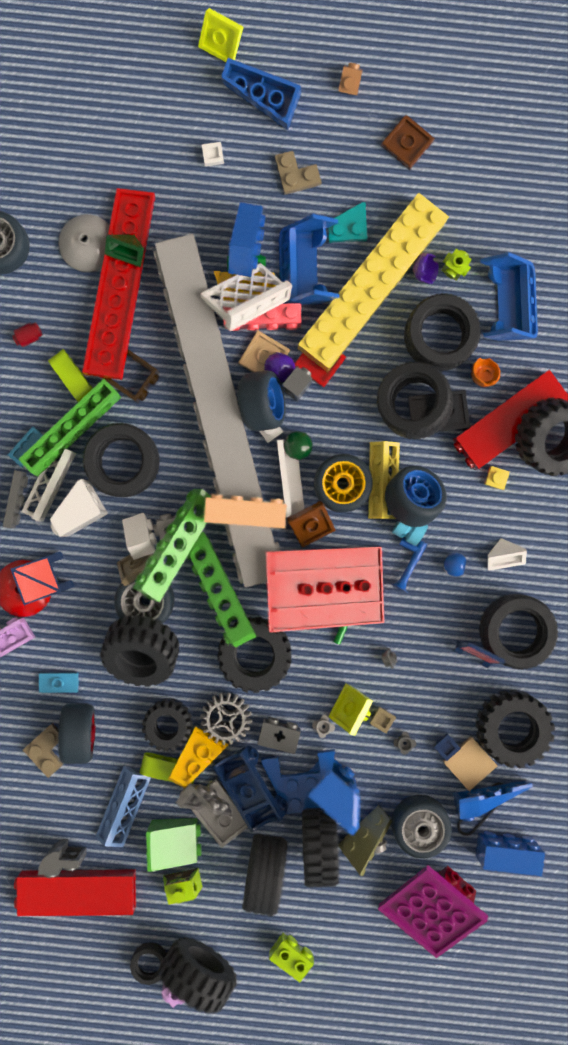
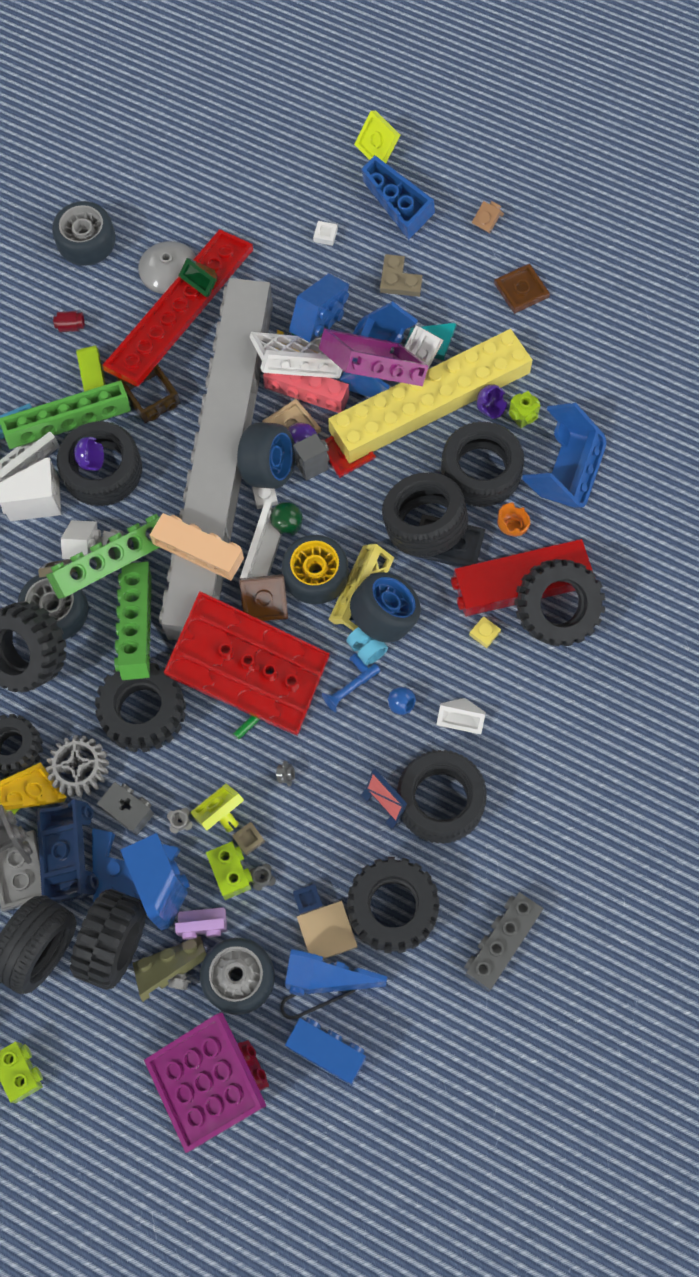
camera: 25 degrees right, 20 degrees down
(114, 464) = (89, 454): none -> dark purple hair
(280, 273) = (373, 357): none -> magenta window
(346, 244) = (423, 345): none -> white plate
(377, 797) = (199, 922): none -> lavender bracket
(382, 753) = (229, 870): none -> lime brick

